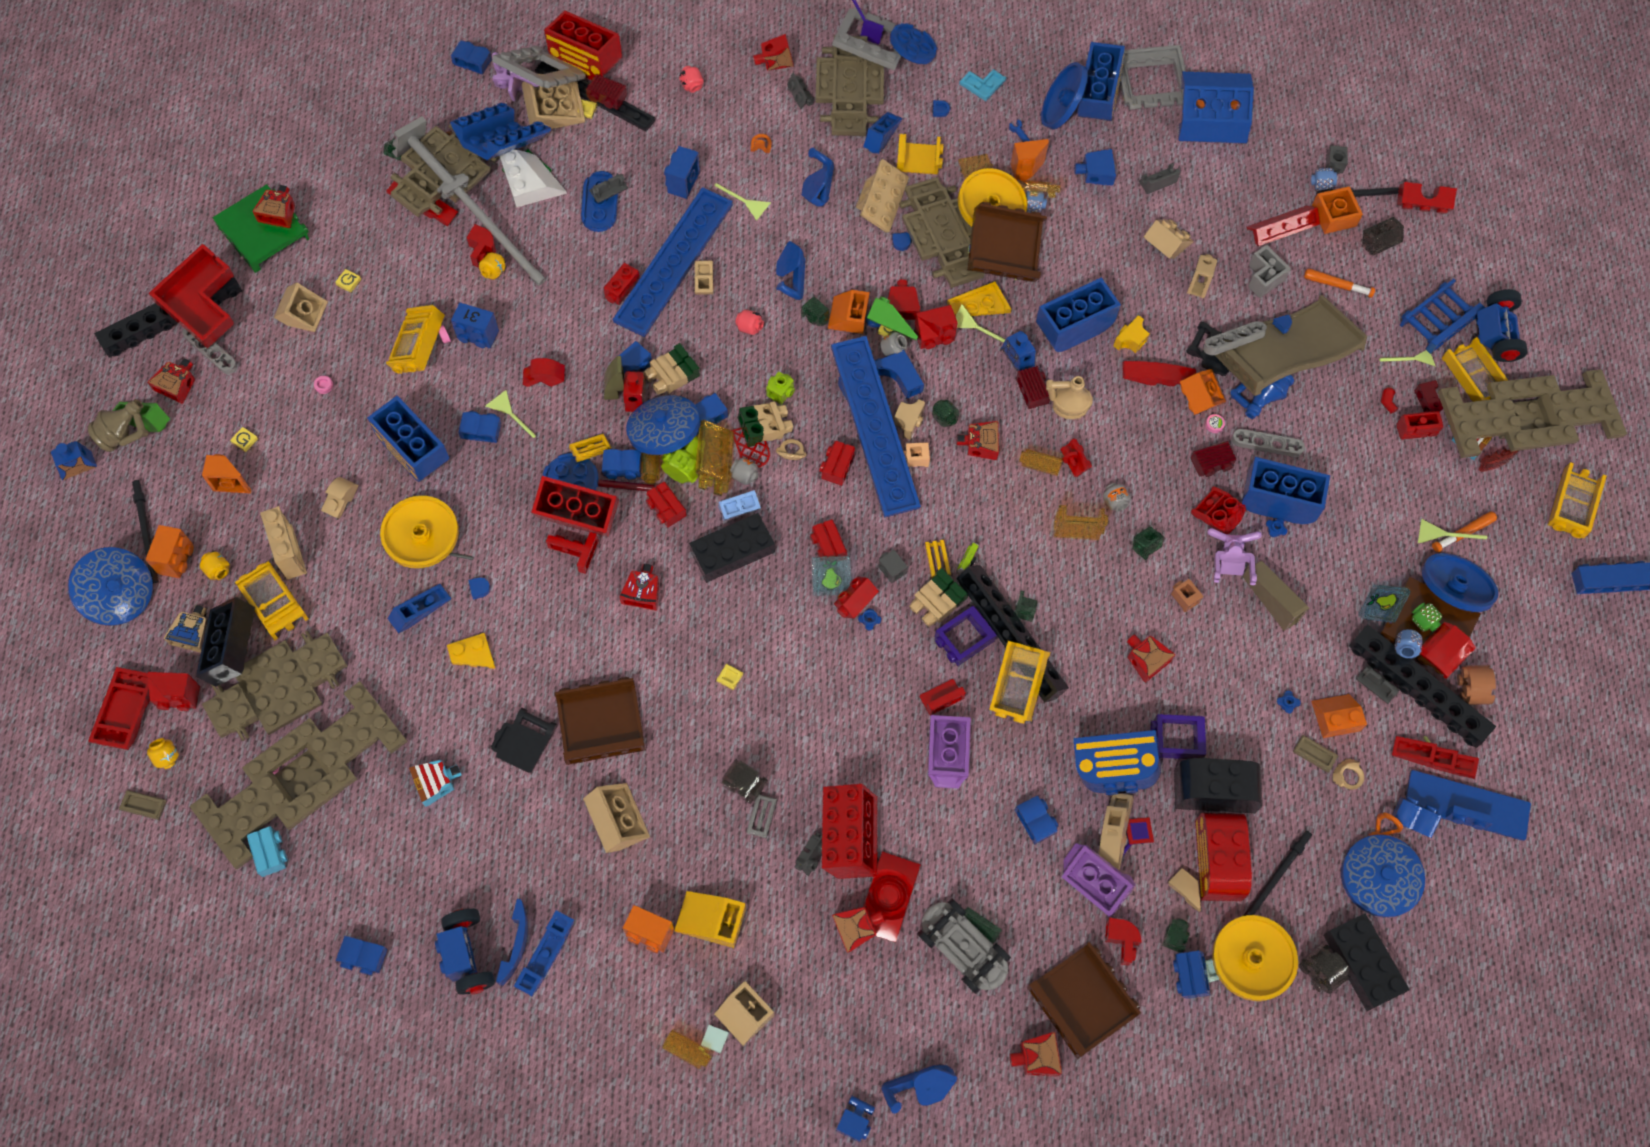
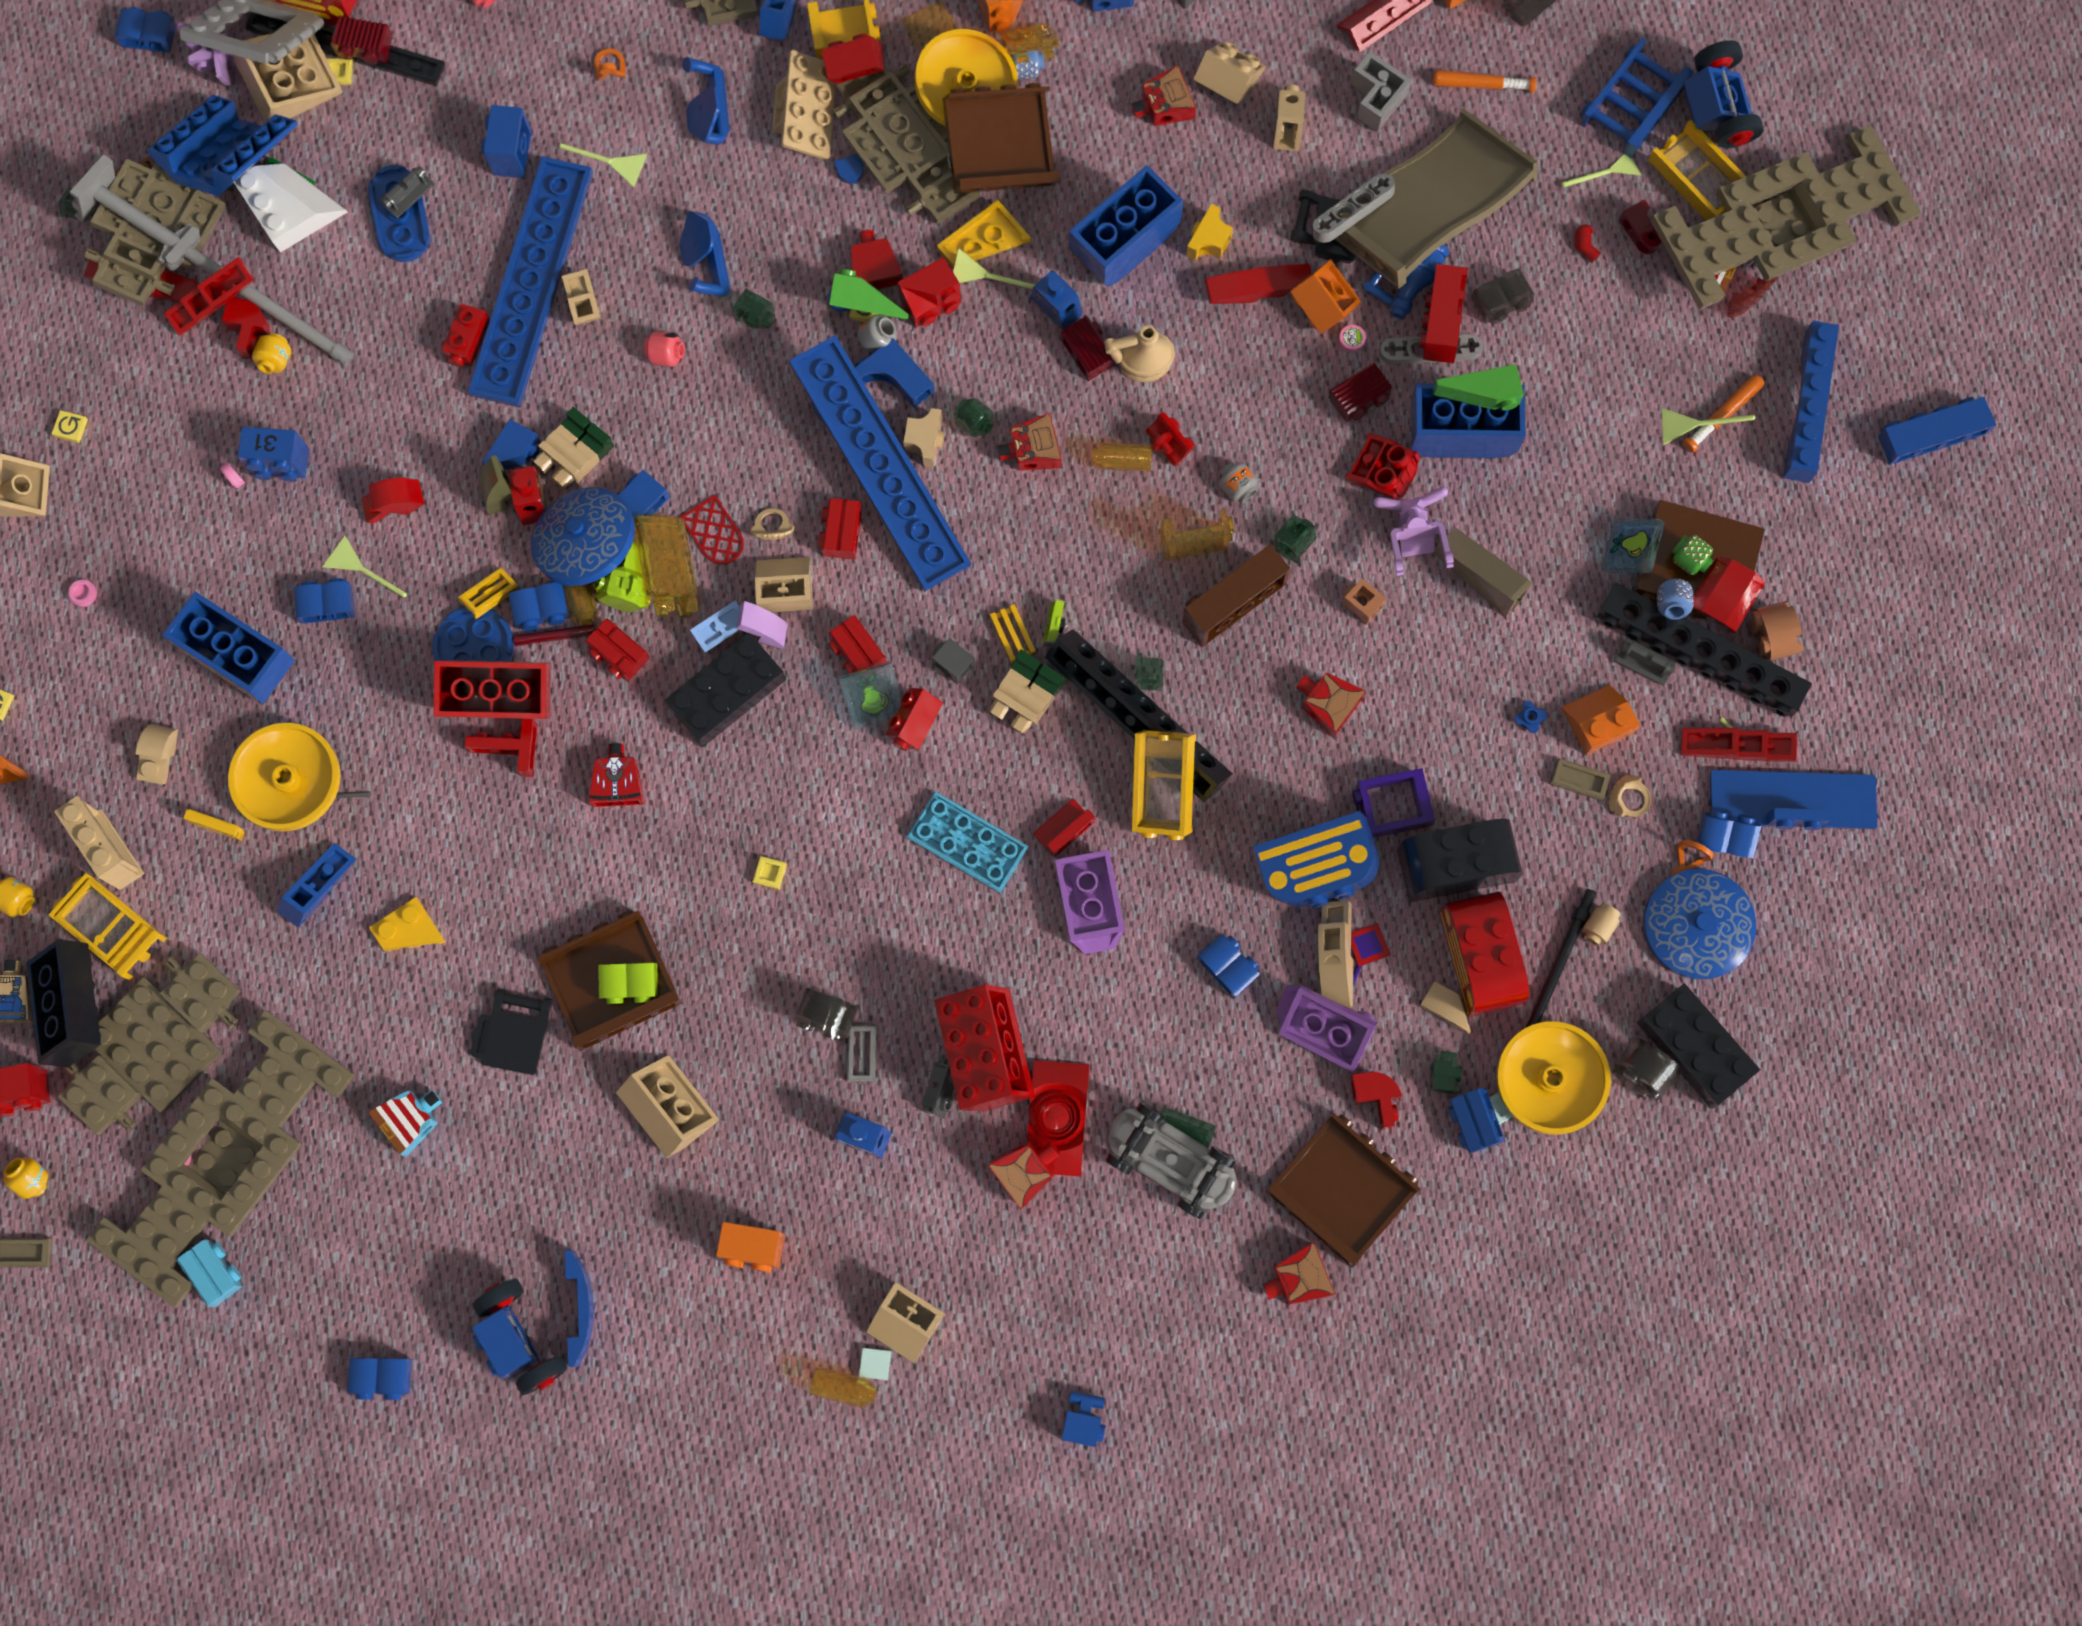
camera: 10 degrees left, 10 degrees up
(363, 551) = (214, 824): none -> yellow tile
(415, 339) = (195, 494): yellow door -> none
(463, 220) = (209, 296): none -> red slope
(479, 587) = (390, 834): blue tile -> none
(545, 954) = (622, 1312): blue slope -> none
(612, 724) = (628, 981): none -> lime brick
(711, 918) = (829, 1209): yellow slope -> none
(744, 471) = (714, 573): light grey head -> none
(747, 872) = (862, 1135): none -> blue torso
(763, 423) = (723, 495): hips -> none
(769, 510) = (762, 623): none -> lavender slope
(780, 387) = (732, 437): lime brick -> none
(789, 490) = (784, 584): none -> tan slope
(849, 311) = (802, 298): orange slope -> none
(869, 613) = (932, 744): blue plate -> none
(872, 690) = (967, 842): none -> medium azure tile
(921, 172) = (853, 58): none -> red slope
(921, 454) = (949, 481): light nougat brick -> none
(929, 1083) = (1167, 1349): blue piece -> none
(980, 625) = (1093, 715): dark purple window -> none
(1098, 569) = (1235, 595): none -> reddish brown brick
(1122, 245) = (1166, 99): none -> torso
(1273, 532) = (1463, 478): blue plate -> none
(1283, 323) = (1417, 166): blue tile -> none
(1283, 420) = (1444, 315): none -> red wedge
(1304, 470) = (1486, 388): none -> bright green slope
(1311, 858) = (1601, 924): none -> tan brick
(1324, 420) = (1503, 296): none -> clear smoke brick
(1419, 425) = (1634, 272): red brick -> none
(1459, 582) = (1729, 491): blue dish -> none
(1525, 550) = (1809, 423): none -> blue arch
(1576, 502) = (1867, 332): door -> none

